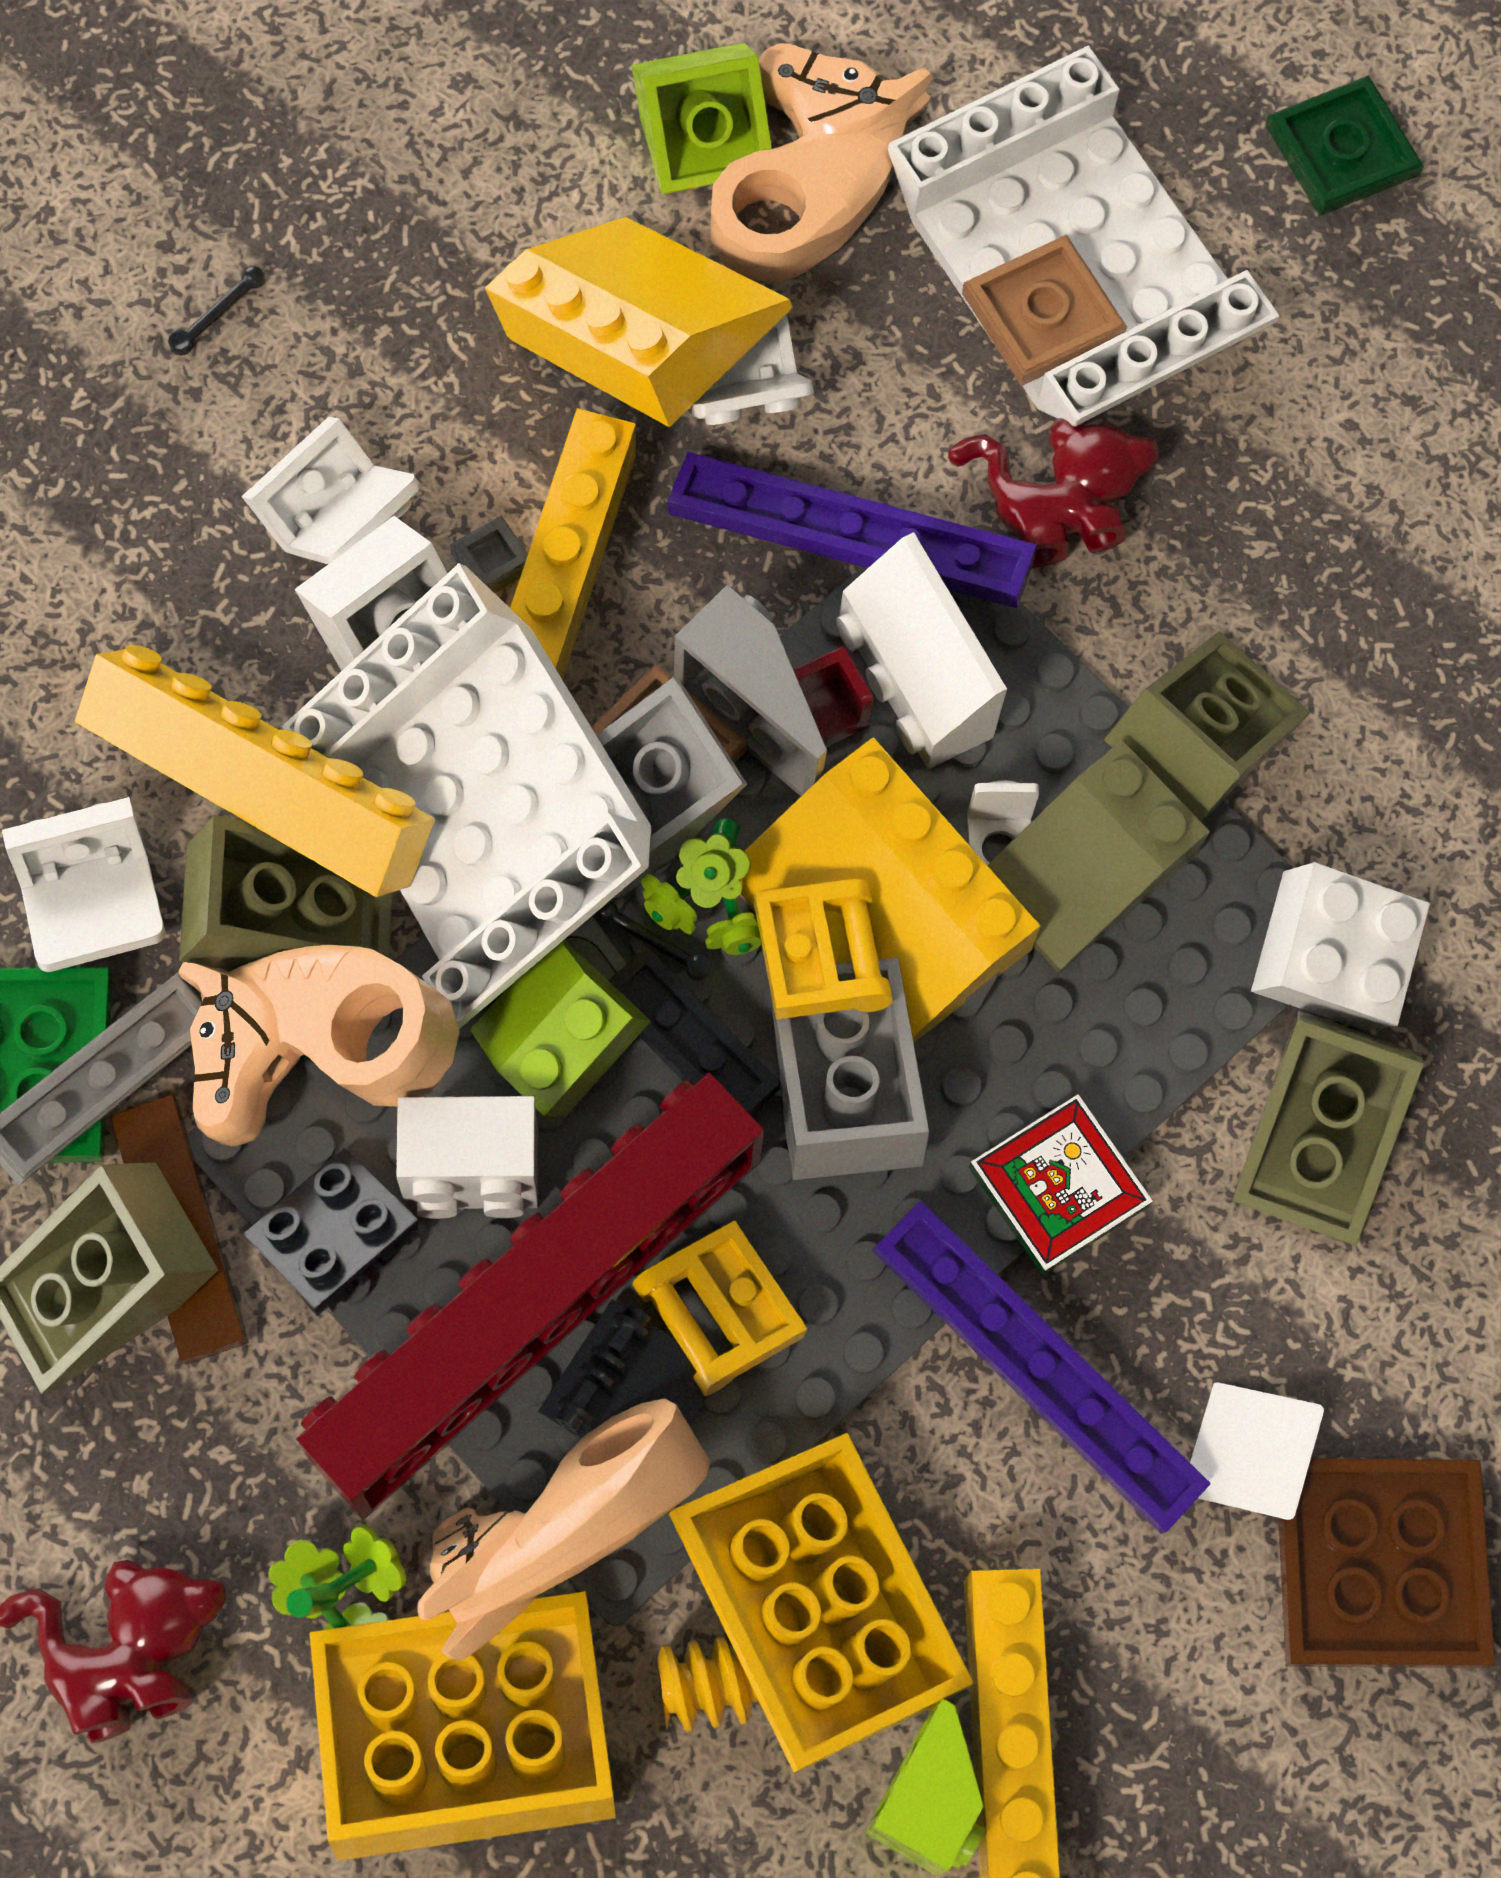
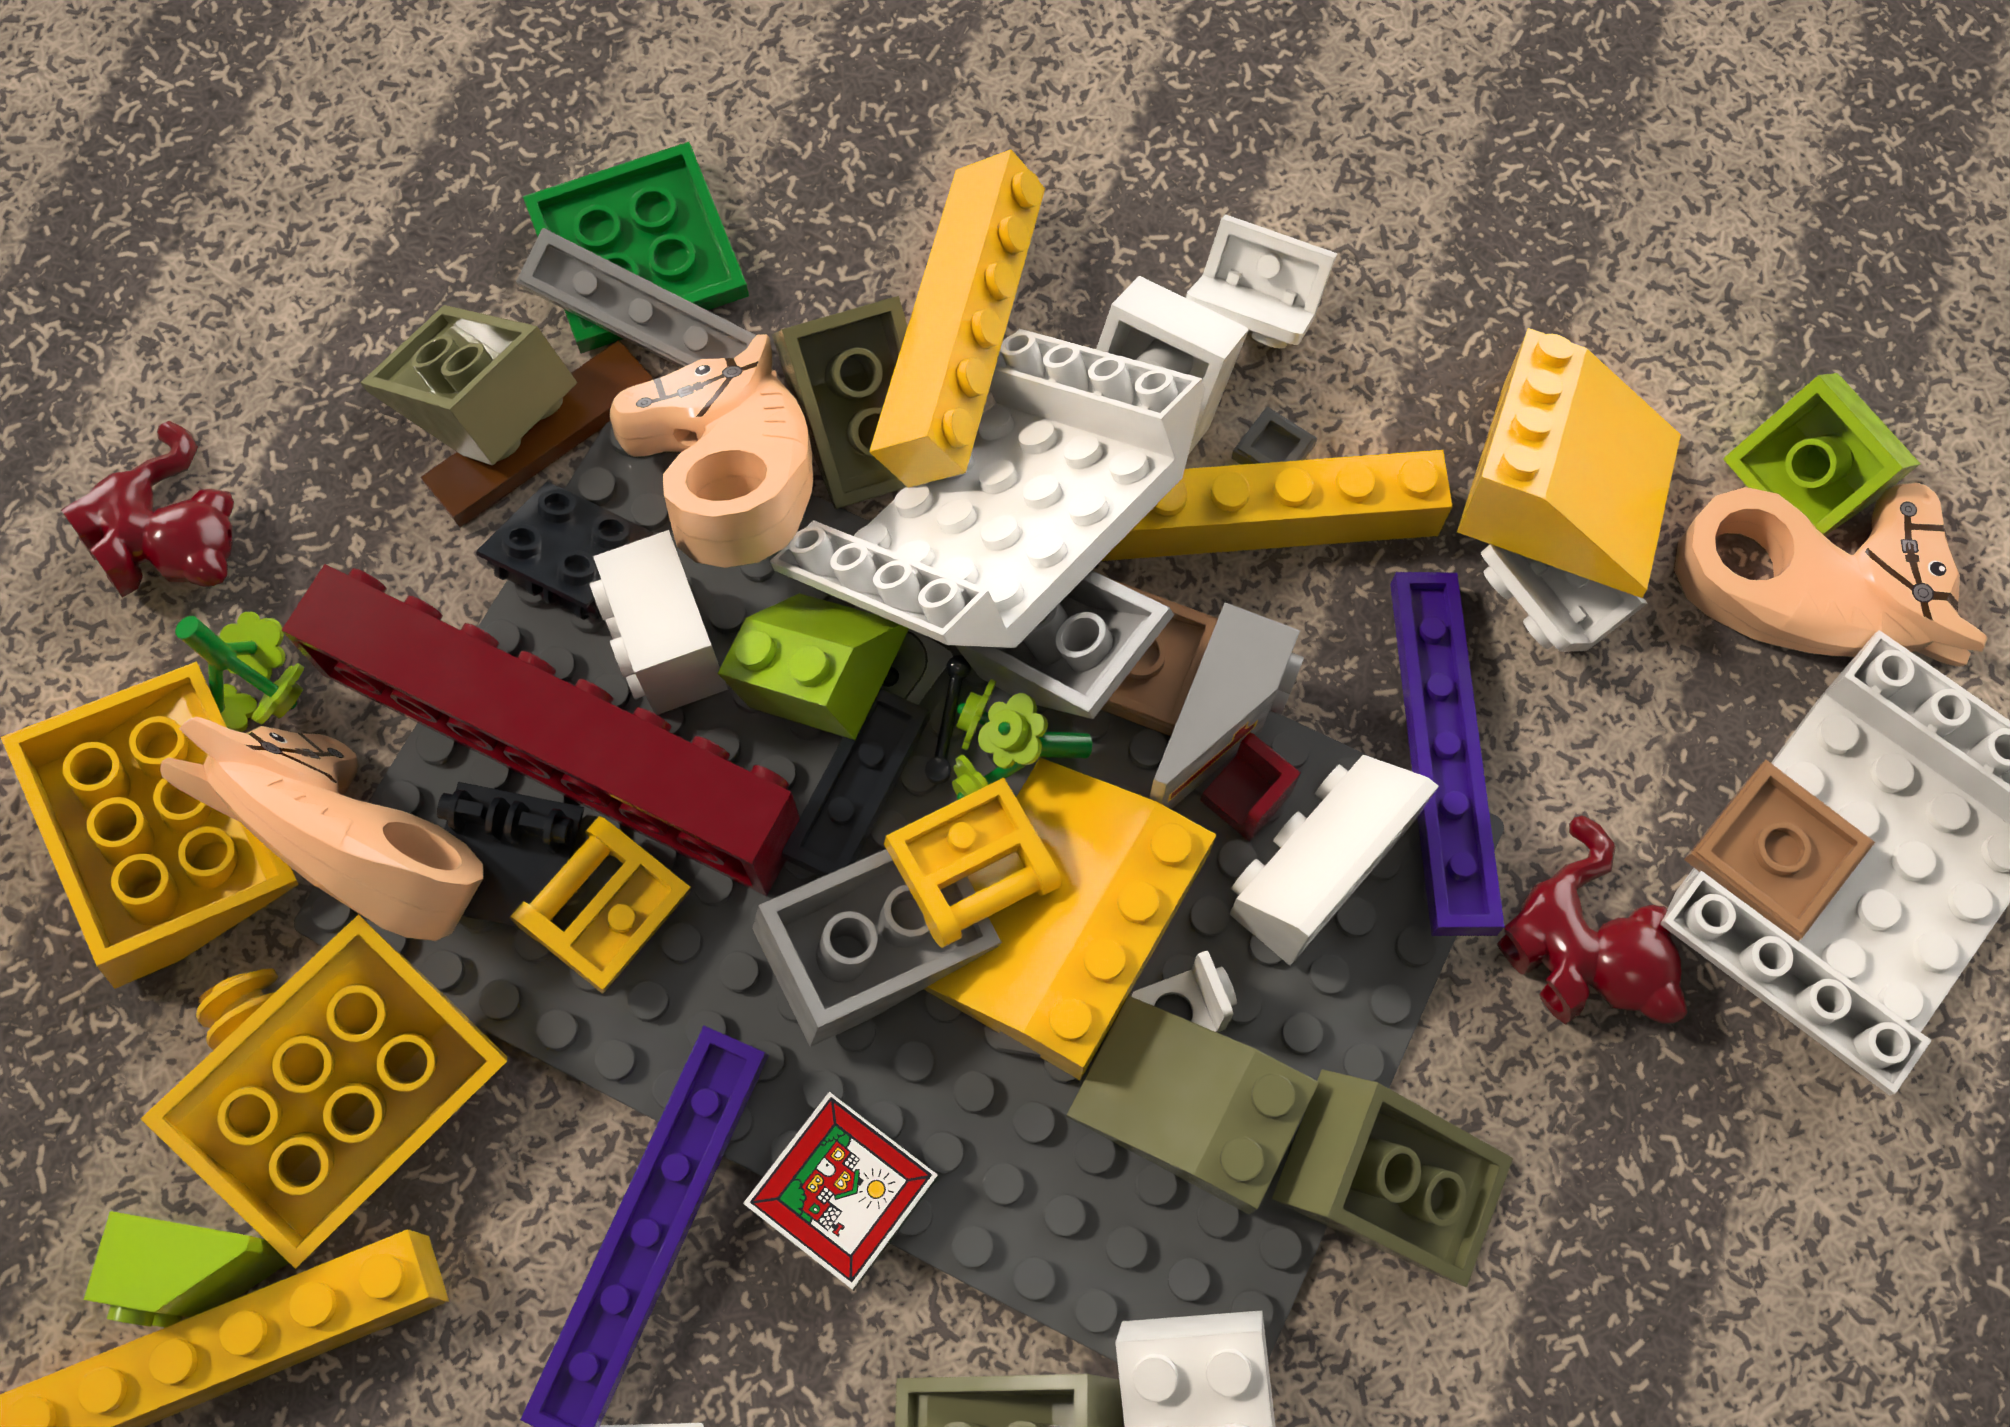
camera: 75 degrees right, 0 degrees up
(85, 884) = (814, 240): white bracket -> none
(182, 341) = (1363, 123): black hinge -> none

